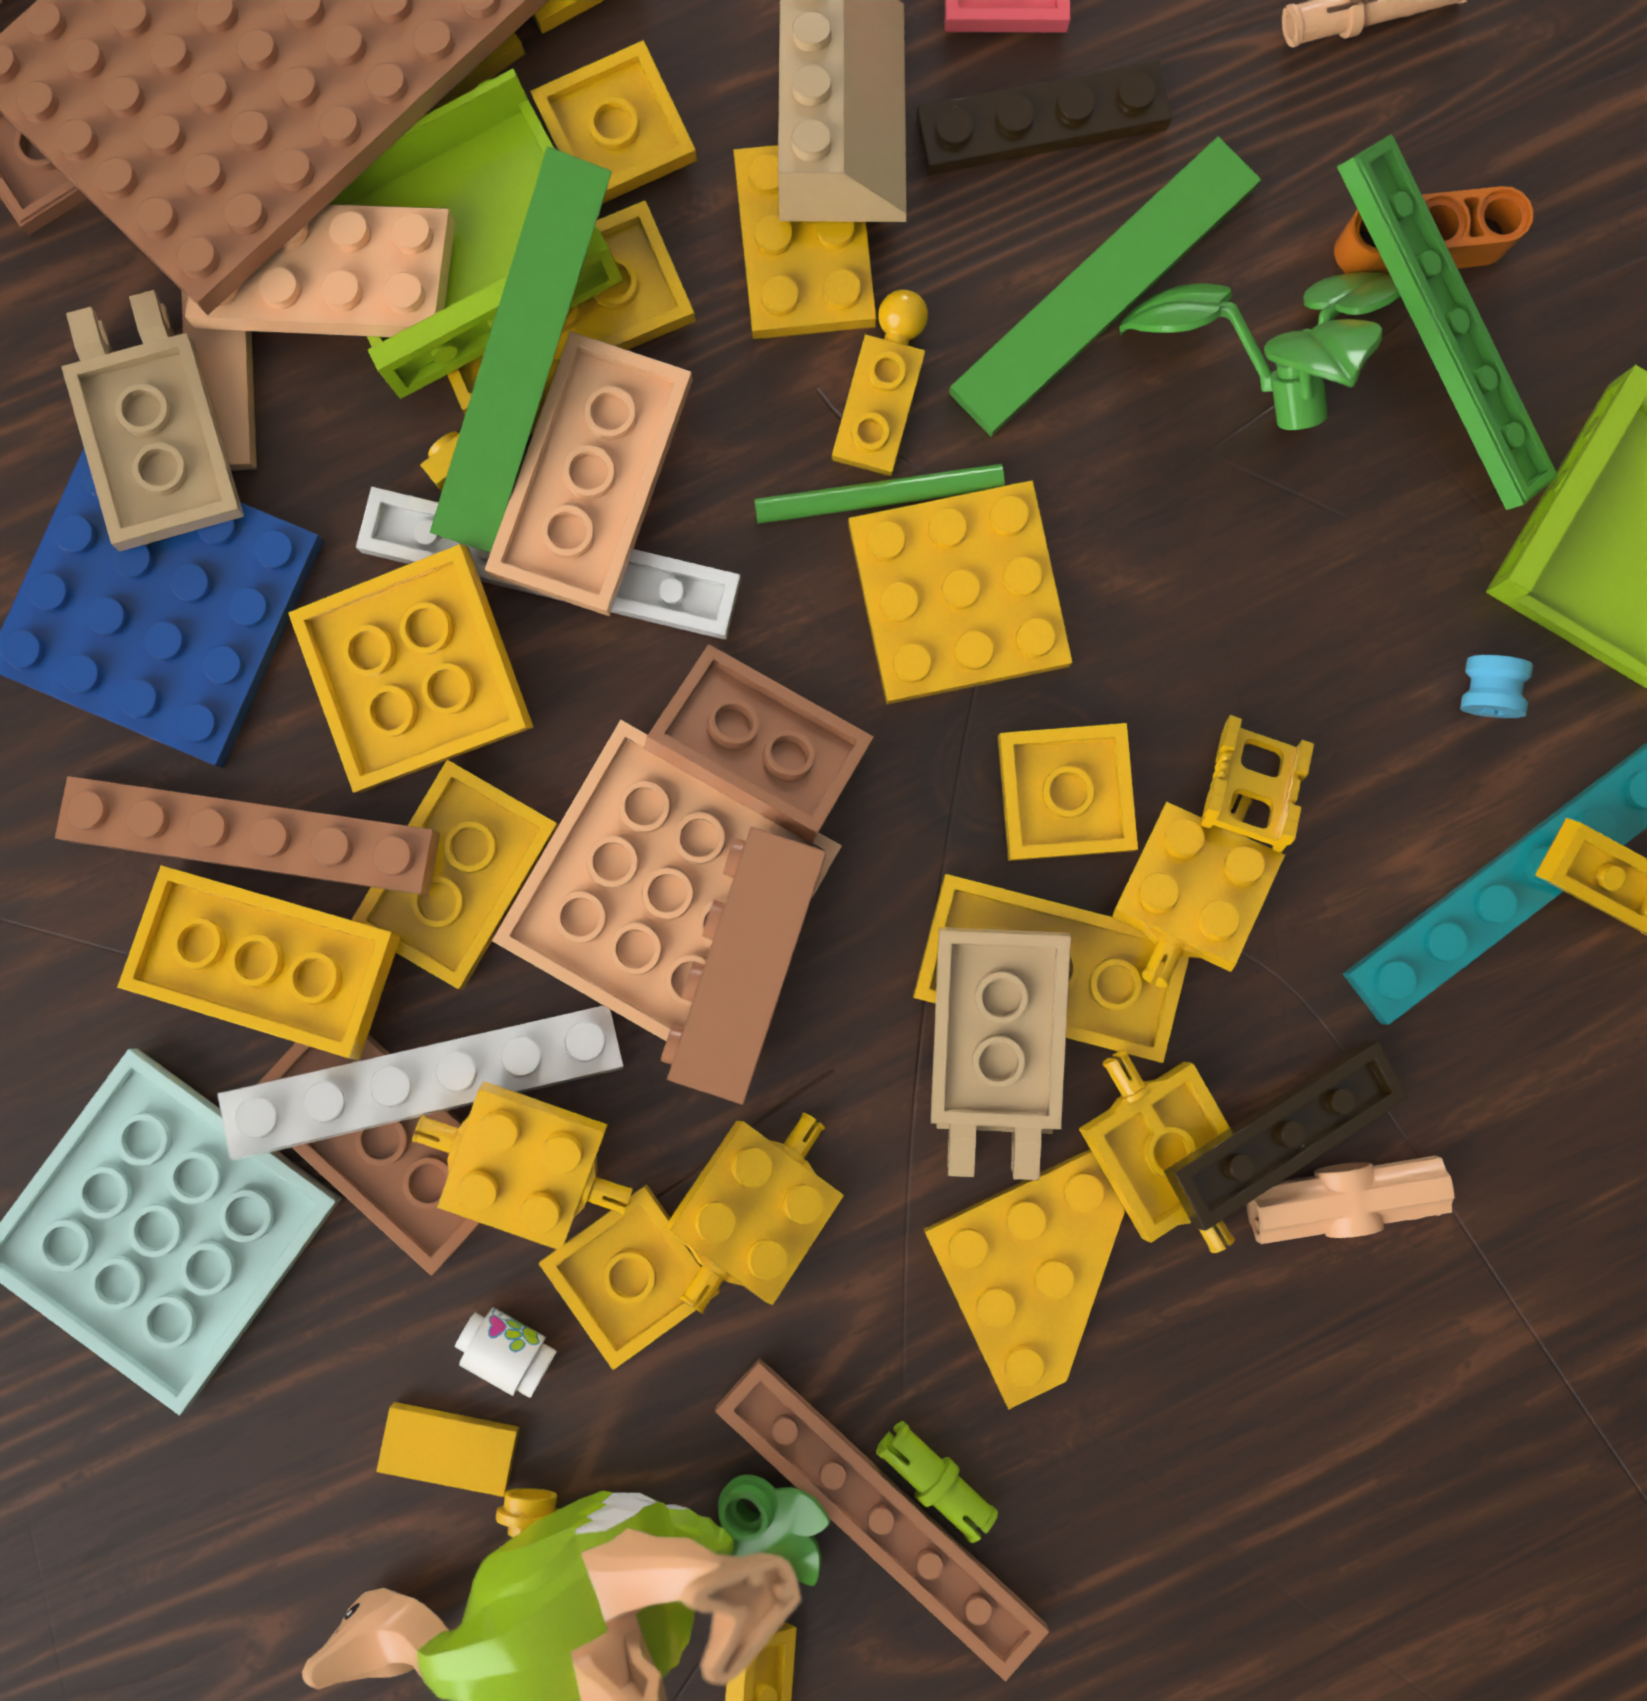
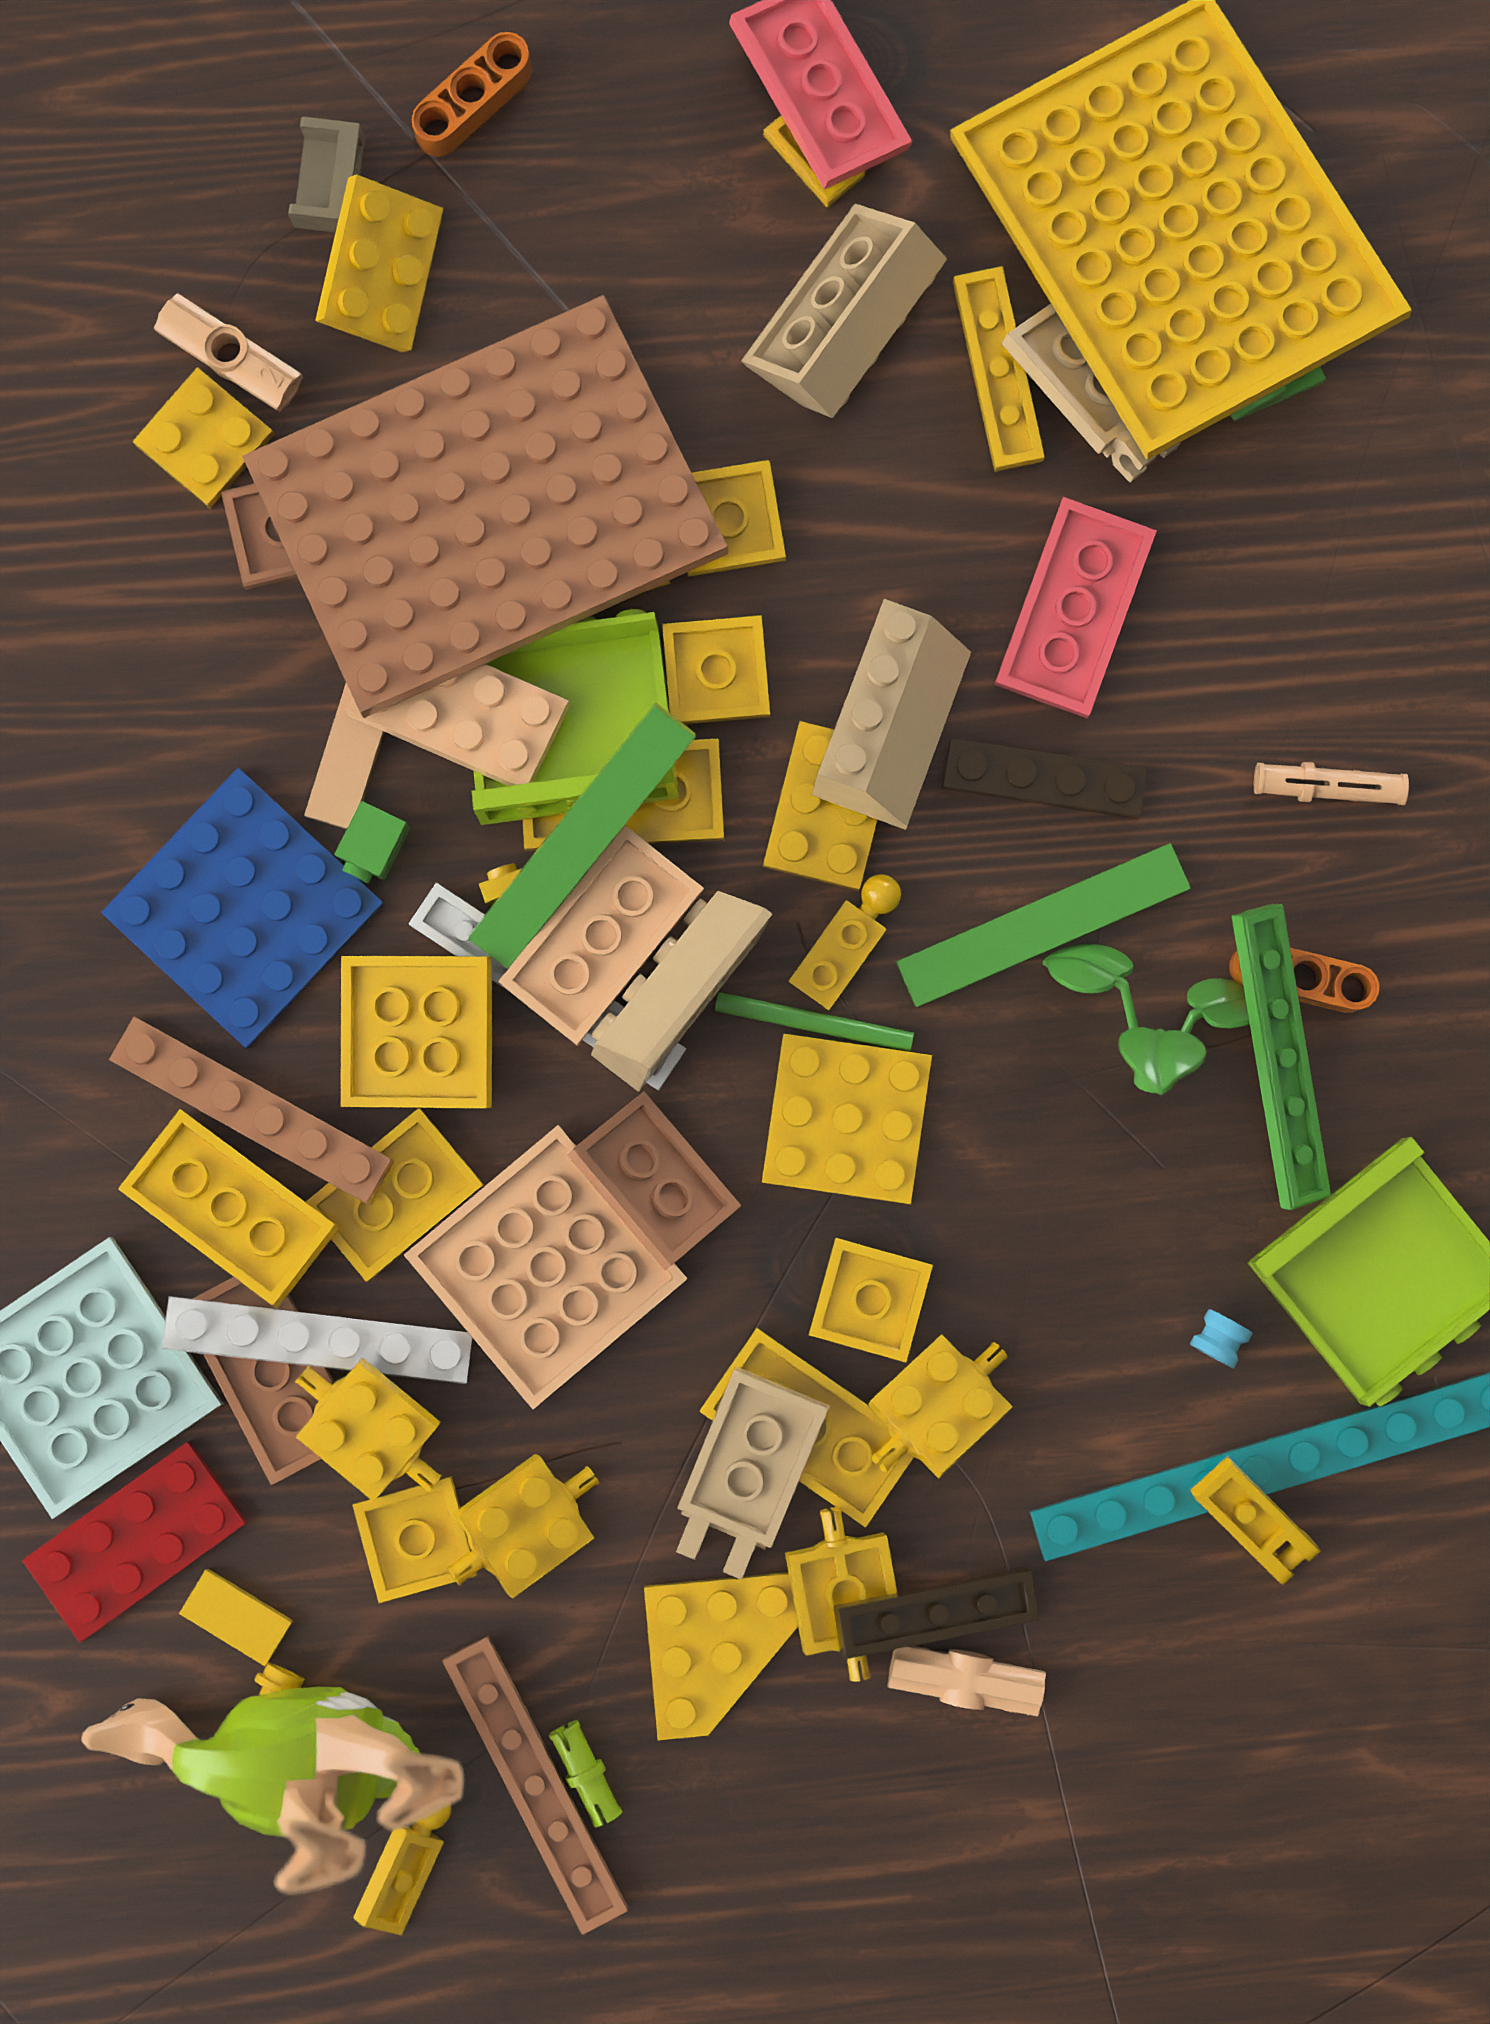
camera: 25 degrees right, 0 degrees up
(148, 429) = (288, 781): tan tile -> none
(278, 467) = (371, 843): none -> bright green brick
(292, 1404) = (134, 1541): none -> red plate
(504, 1352) = (304, 1561): white brick -> none
(705, 499) = (679, 987): none -> tan slope
(745, 965) = (583, 1343): nougat brick -> none
(781, 1527) = (468, 1750): bright green plate -> none
(1277, 792) = (1025, 1357): yellow piece -> none

